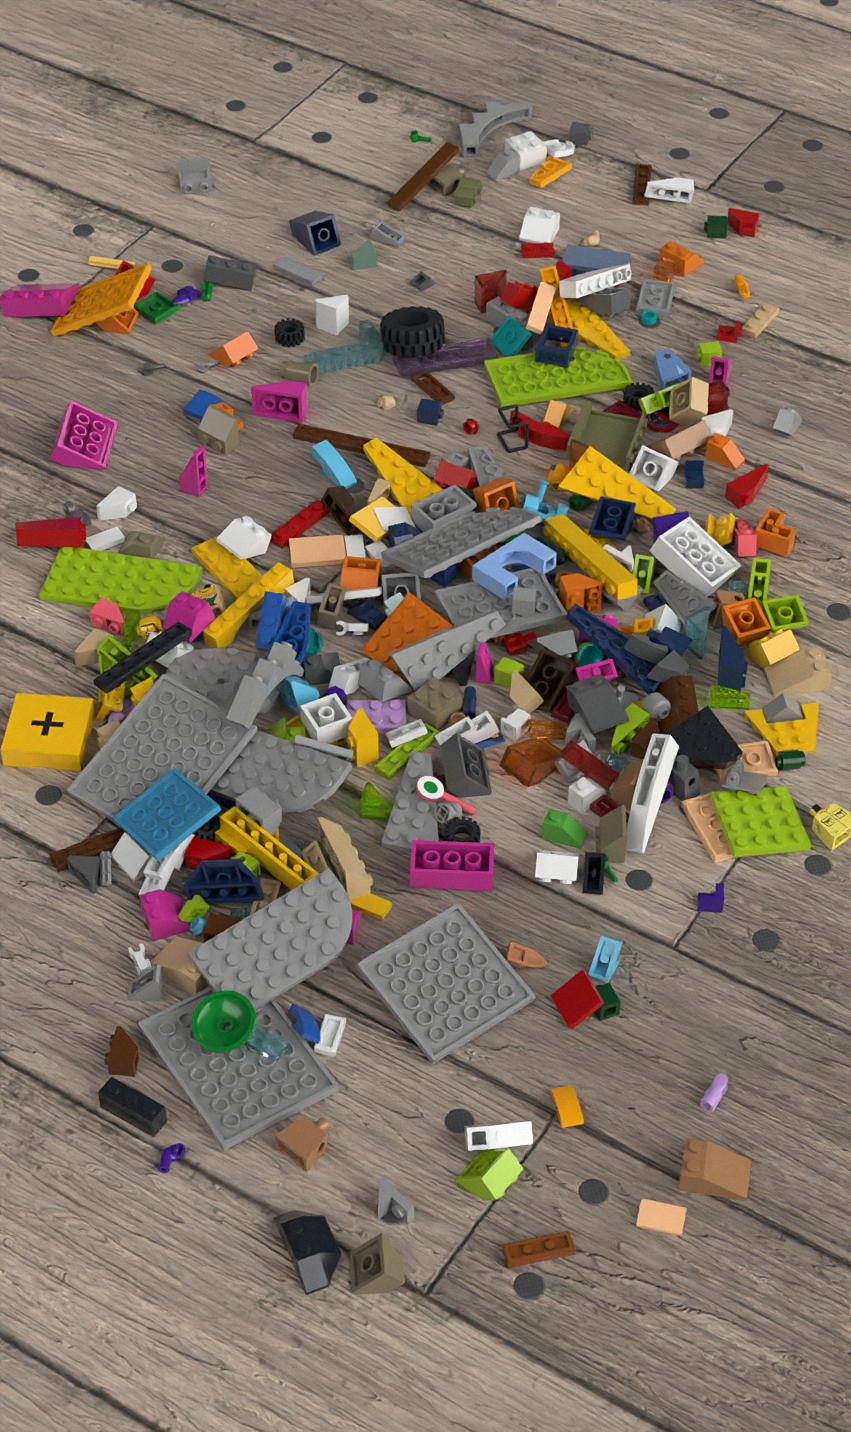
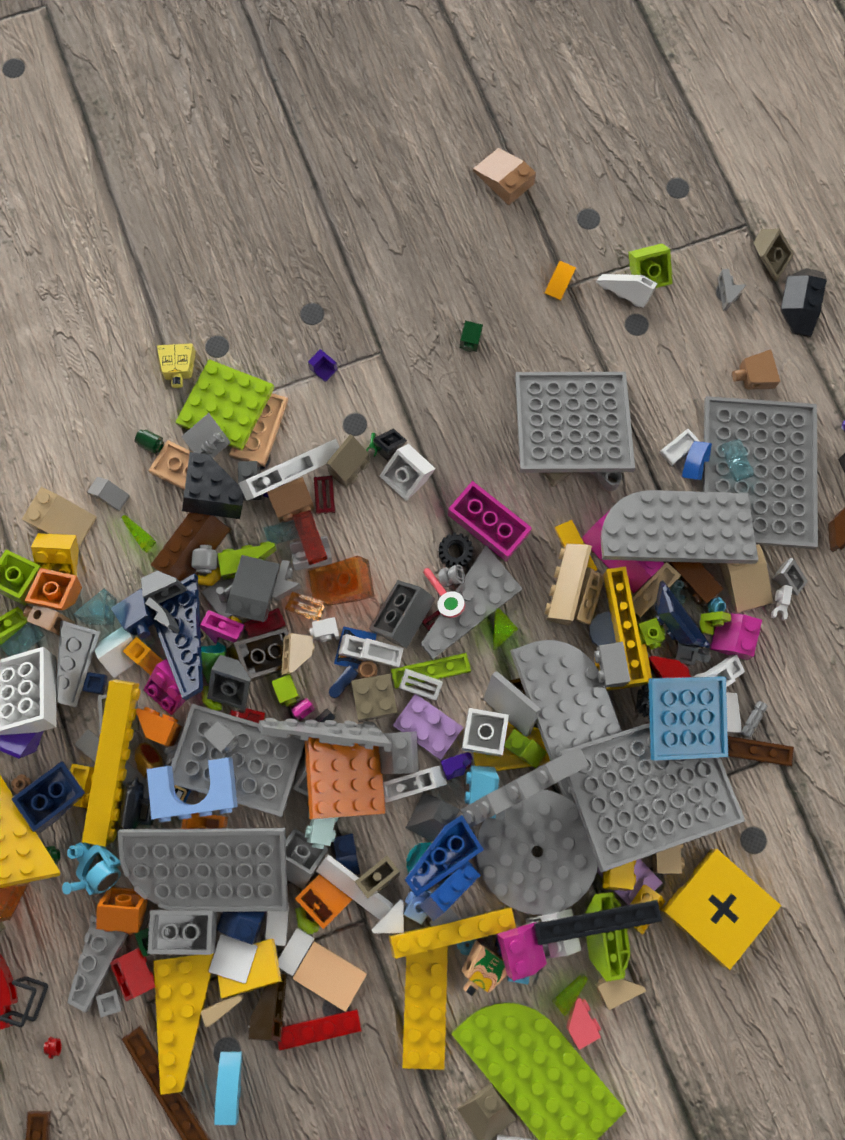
camera: 145 degrees left, 30 degrees up
(86, 870) = (774, 723): dark grey slope -> none
(149, 625) = (553, 978): yellow head -> none
(216, 1013) = (771, 484): green dish -> none
(245, 538) = (392, 1035): white slope -> none
(357, 628) = (370, 842): white plate -> none
(362, 739) = (468, 695): yellow slope -> none
(429, 412) = (74, 1100): dark blue brick -> none
(523, 957) = (497, 412): nougat plate -> none
(538, 1249) = (655, 203): dark orange tile -> none
(556, 475) = (37, 903): light orange head -> none
(563, 829) = (376, 500): bright green slope -> none
(577, 999) = (490, 346): red tile -> none
(584, 793) = (330, 520): white slope -> none
(605, 958) = (442, 367): medium azure slope -> none
(625, 557) = (83, 740): white slope -> none
(641, 741) = (239, 533): reddish brown slope -> none
(643, 571) = (75, 721): lime slope -> none
(661, 1217) = (562, 170): light nougat slope -> none
(714, 1093) = (455, 224): lavender bar -> none
(731, 663) = (107, 559): dark blue slope -> none
(787, 734) = (124, 467): yellow wing -> none

